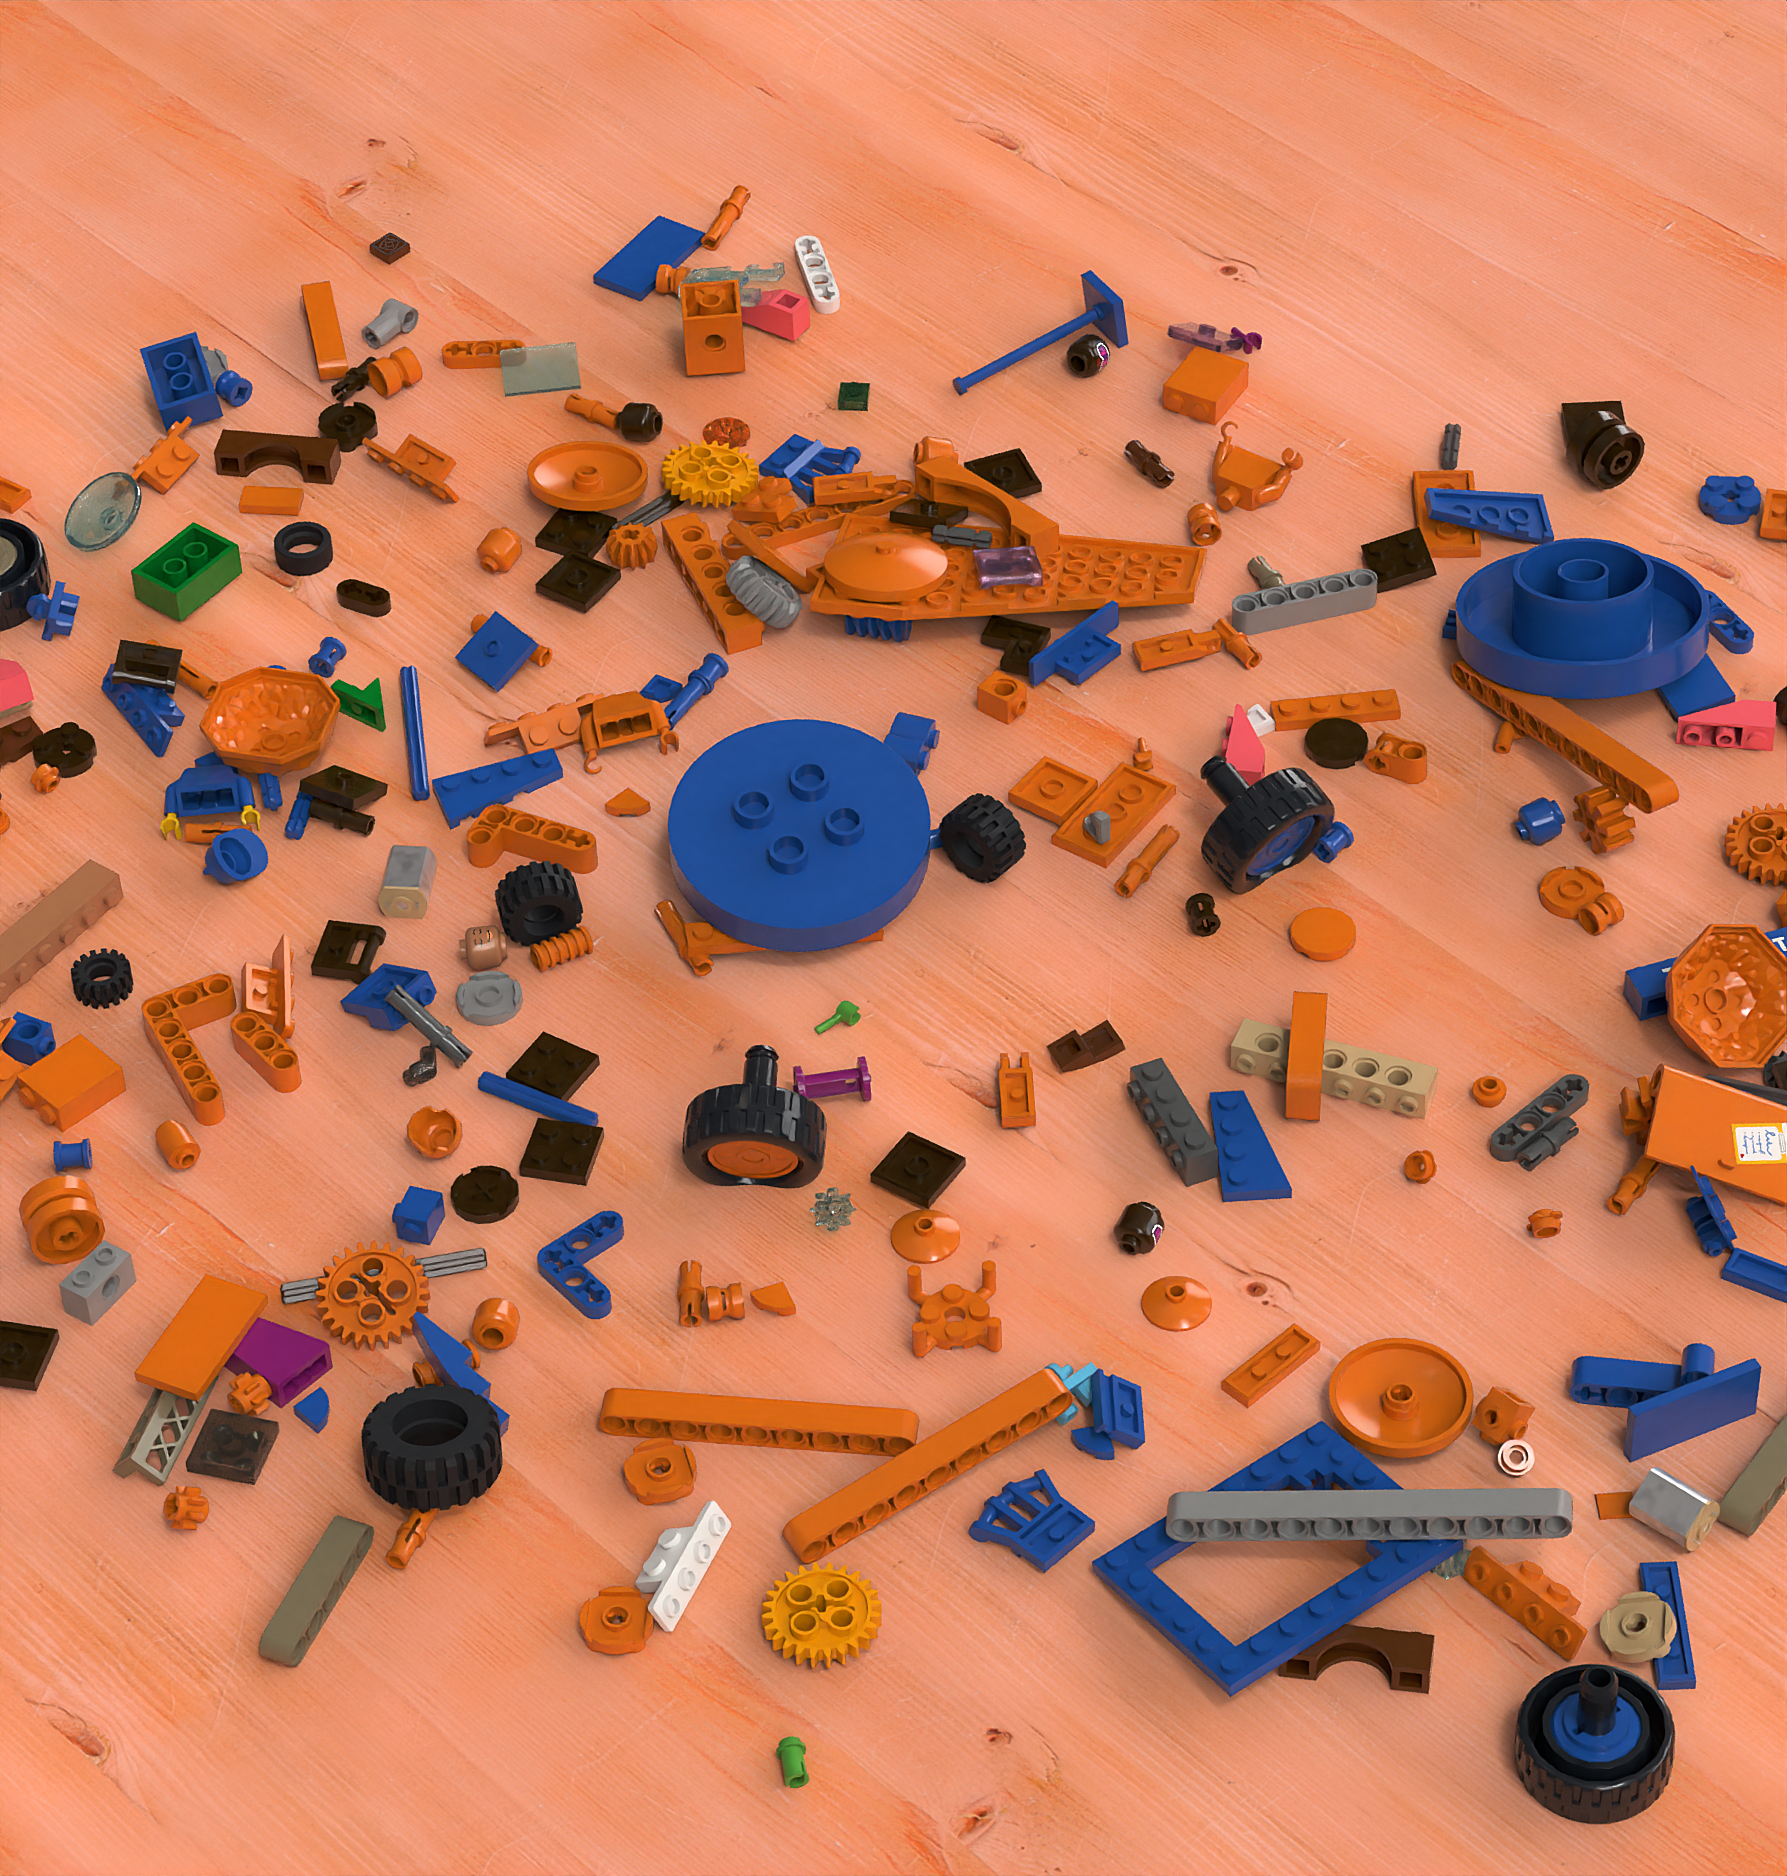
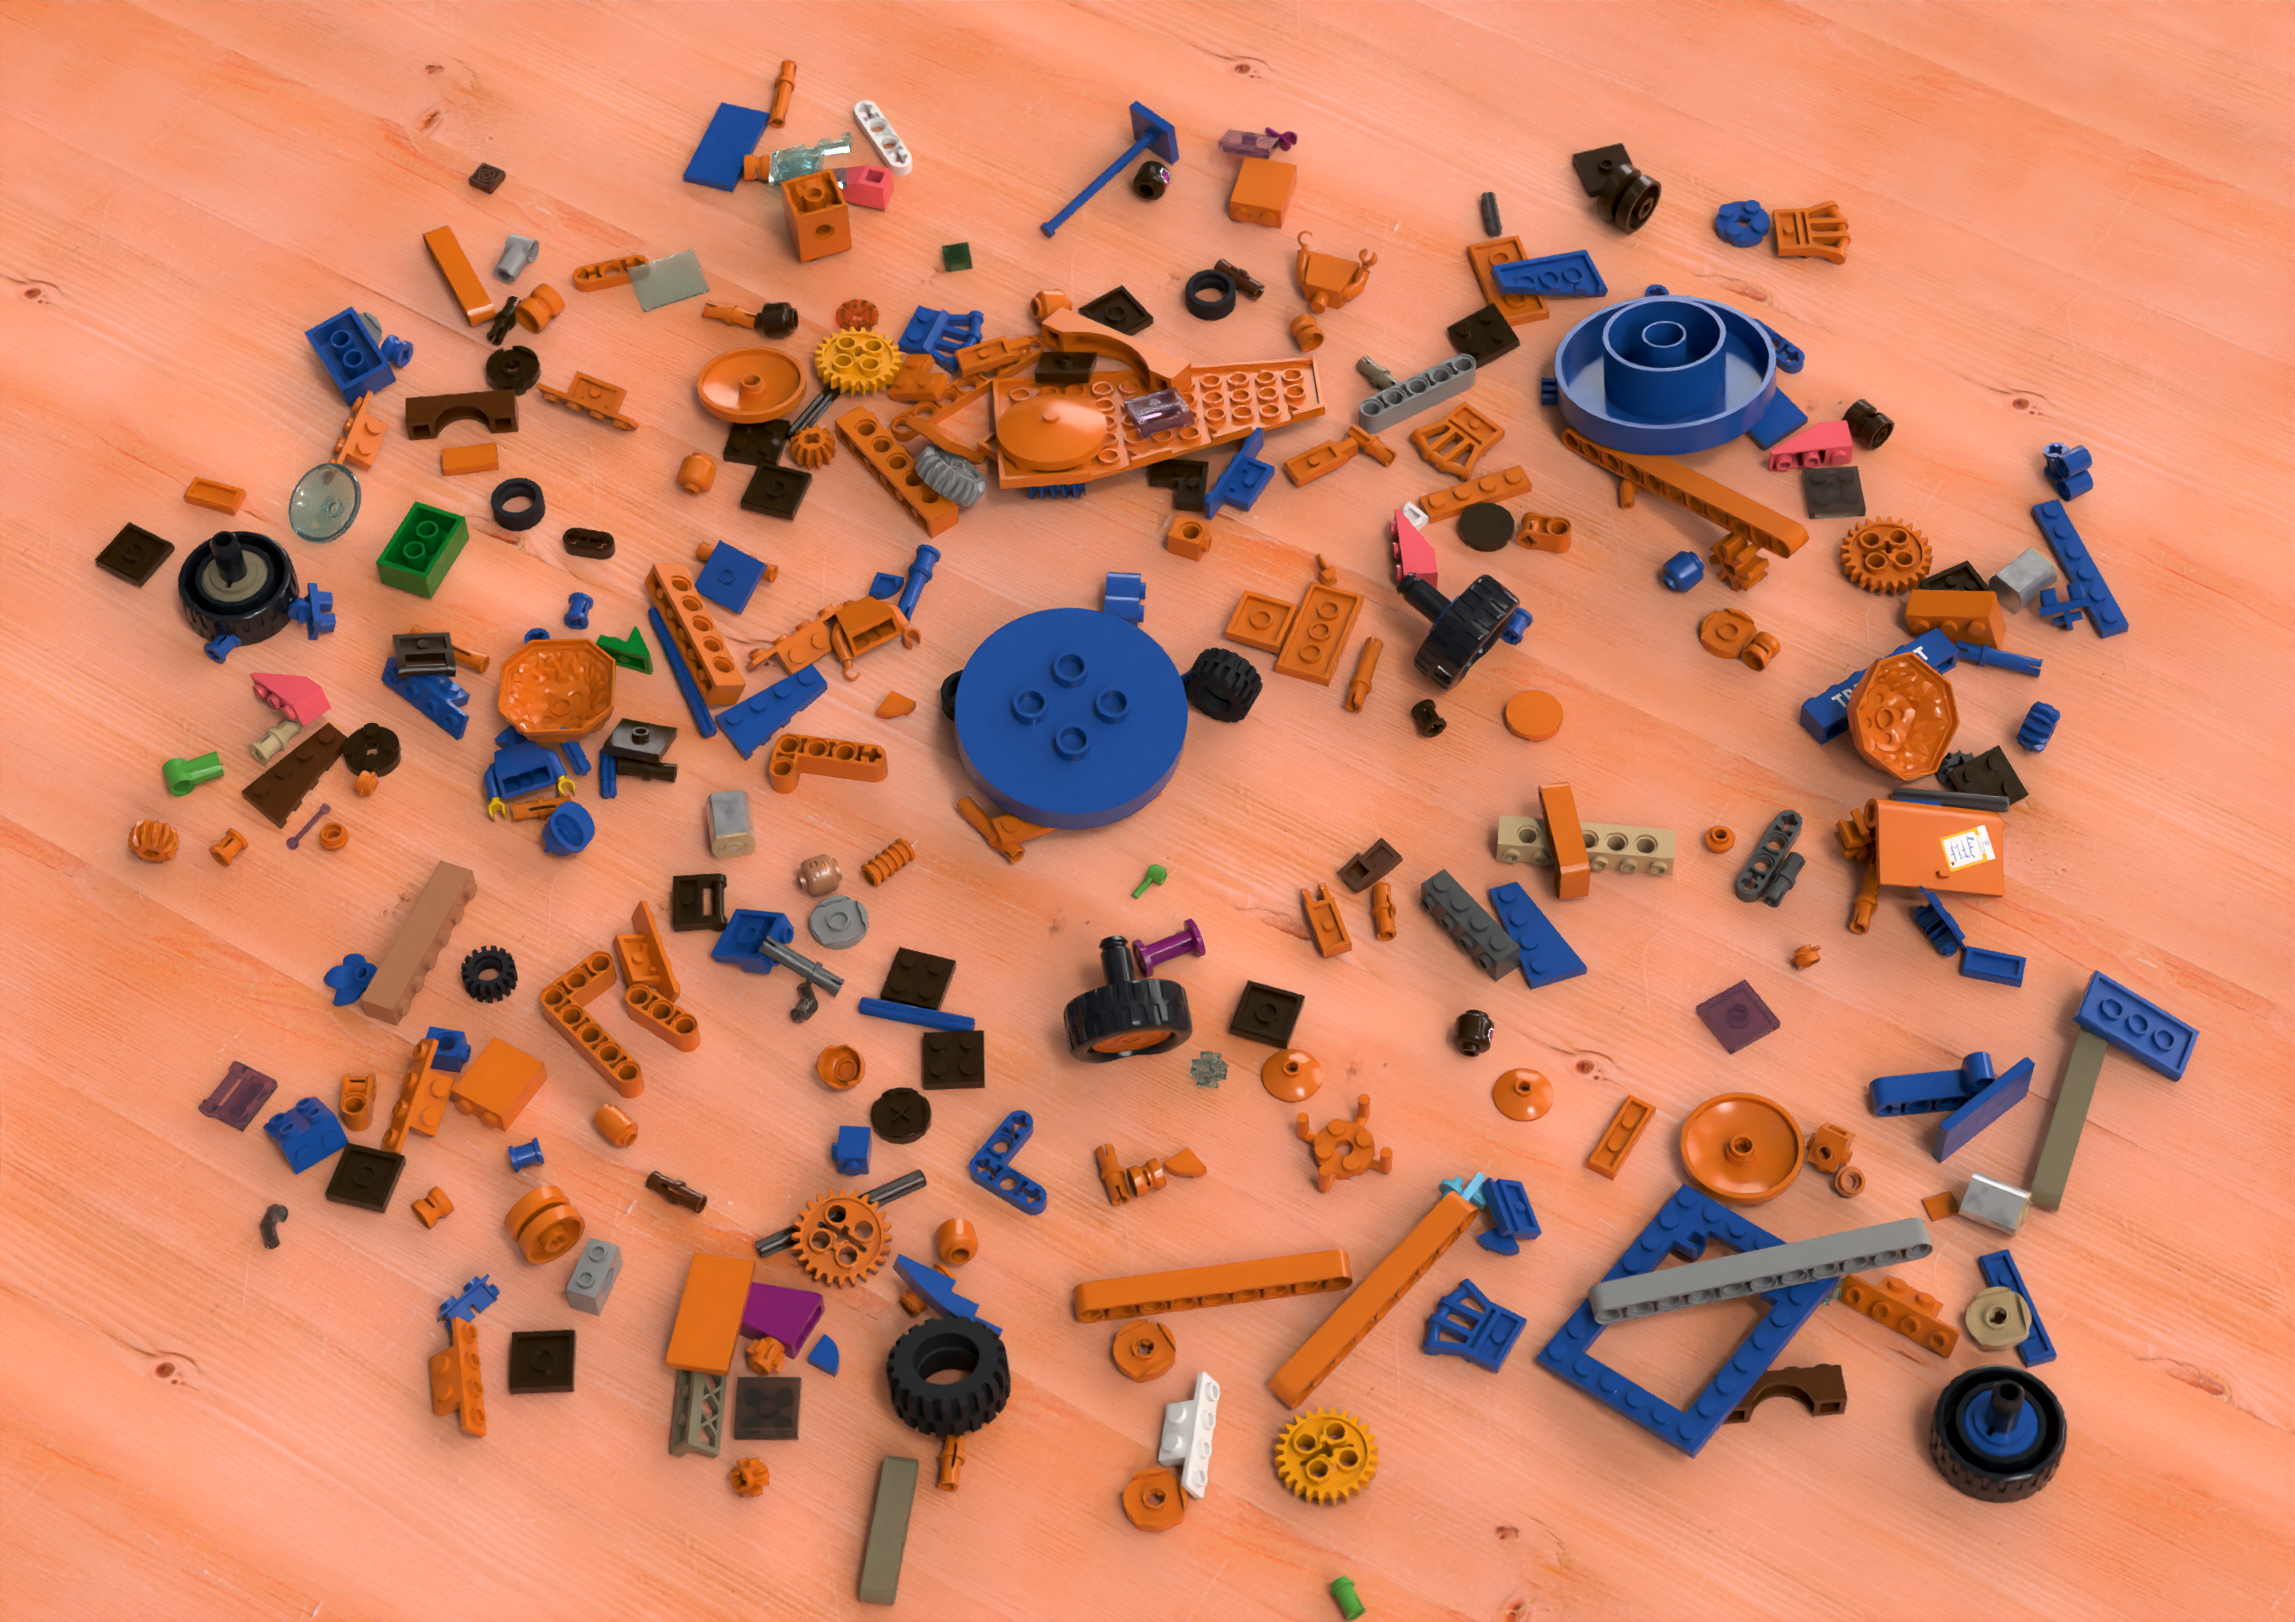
camera: 15 degrees left, 10 degrees up
(229, 1230) = (691, 1200): none -> reddish brown pin
(439, 697) = (694, 634): none -> orange brick
(538, 902) = (859, 826): black tyre -> none
(962, 537) = (1105, 387): dark grey axle -> none
(1085, 1093) = (1384, 911): none -> orange pin
(1098, 826) = (1314, 650): light grey tile -> none
(1112, 487) = (1210, 279): none -> black tyre
(1352, 648) = (1469, 428): none -> orange plate
(1413, 1166) = (1680, 923): orange plate -> none
(1447, 1270) = (1737, 1016): none -> plate
(1741, 775) = (1833, 492): none -> clear smoke plate

